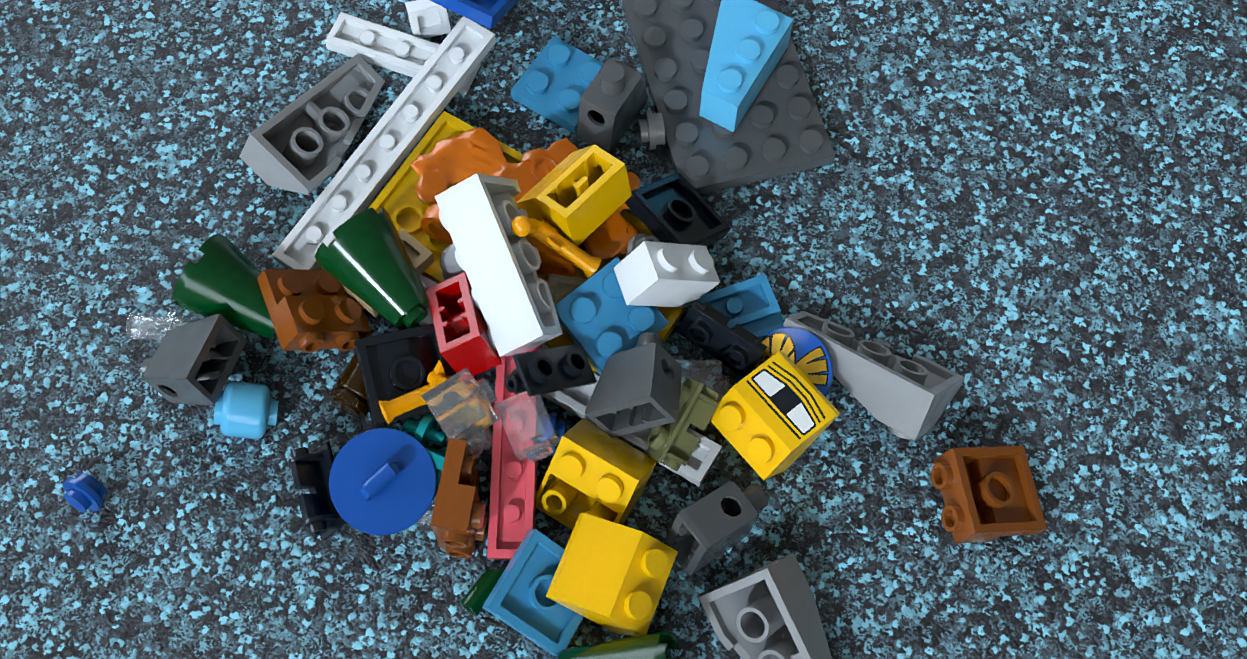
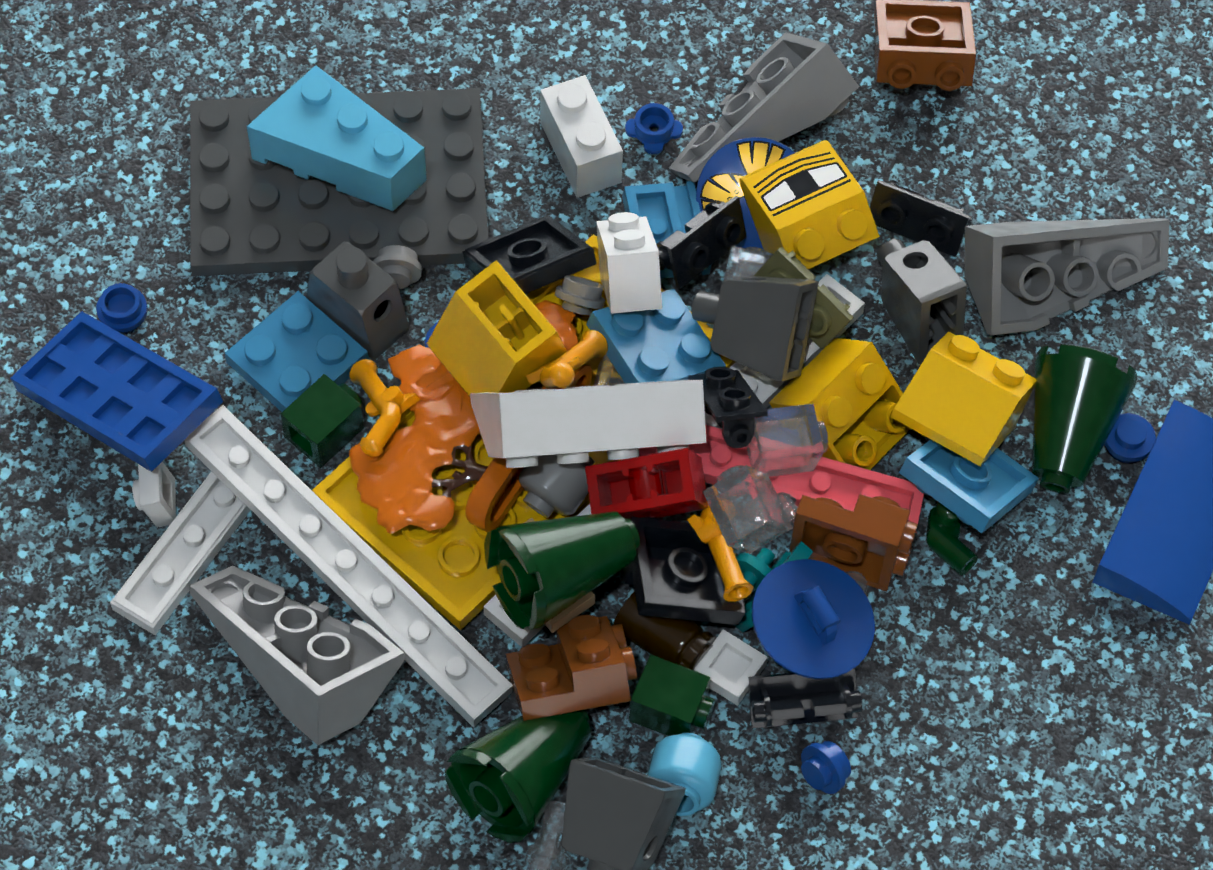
camera: 80 degrees left, 5 degrees down
(264, 516) = (825, 766): none -> blue plate
(306, 390) = (671, 698): none -> dark green brick
(341, 426) = (730, 665): none -> white plate
(507, 107) = (323, 420): none -> dark green brick
(519, 140) = (384, 401): none -> light orange piece
(806, 233) = (581, 136): none -> white brick
(809, 499) = (919, 218): none -> black hinge
(839, 280) = (655, 116): none -> blue plate

